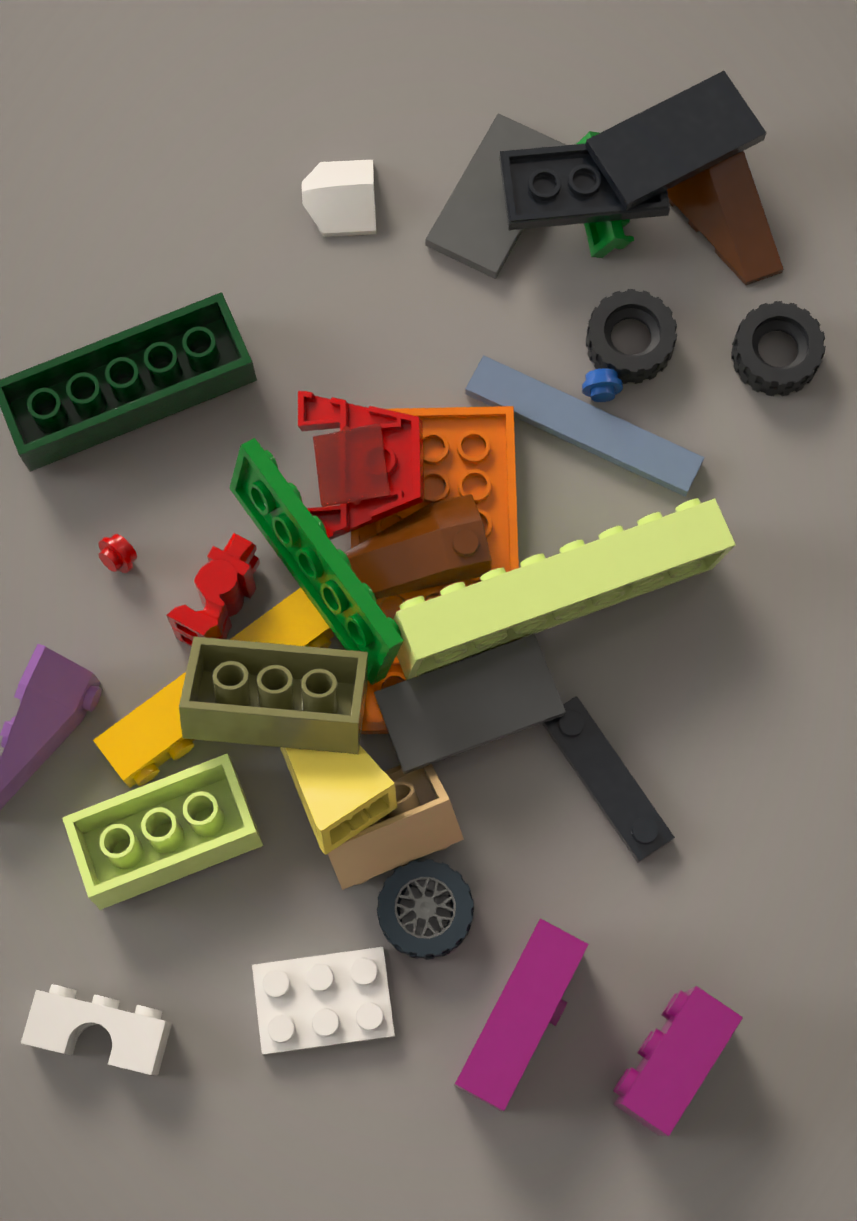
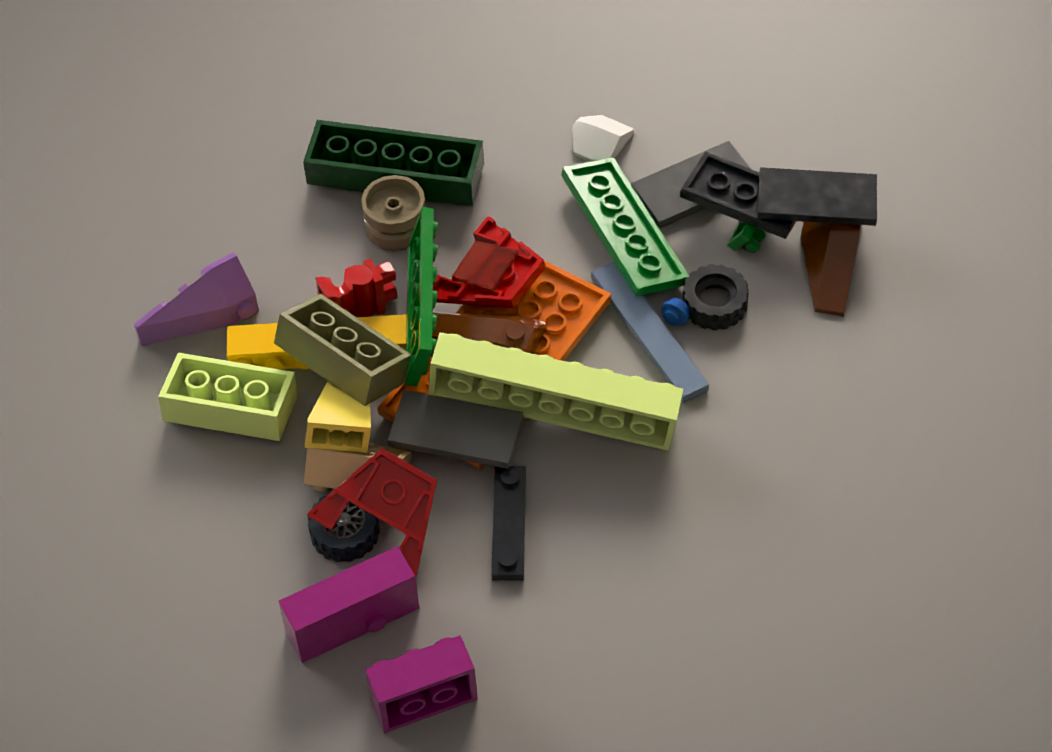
camera: 35 degrees right, 20 degrees down
(59, 1019) = (97, 460): white arch -> none
(117, 553) = (319, 247): red plate -> none
(177, 451) = (391, 210): none -> dark tan wheel
(323, 1000) = (247, 541): white plate -> none
(463, 304) = (624, 226): none -> plate
(468, 845) = (389, 492): none -> red wing
(782, 318) = (802, 371): black tyre -> none

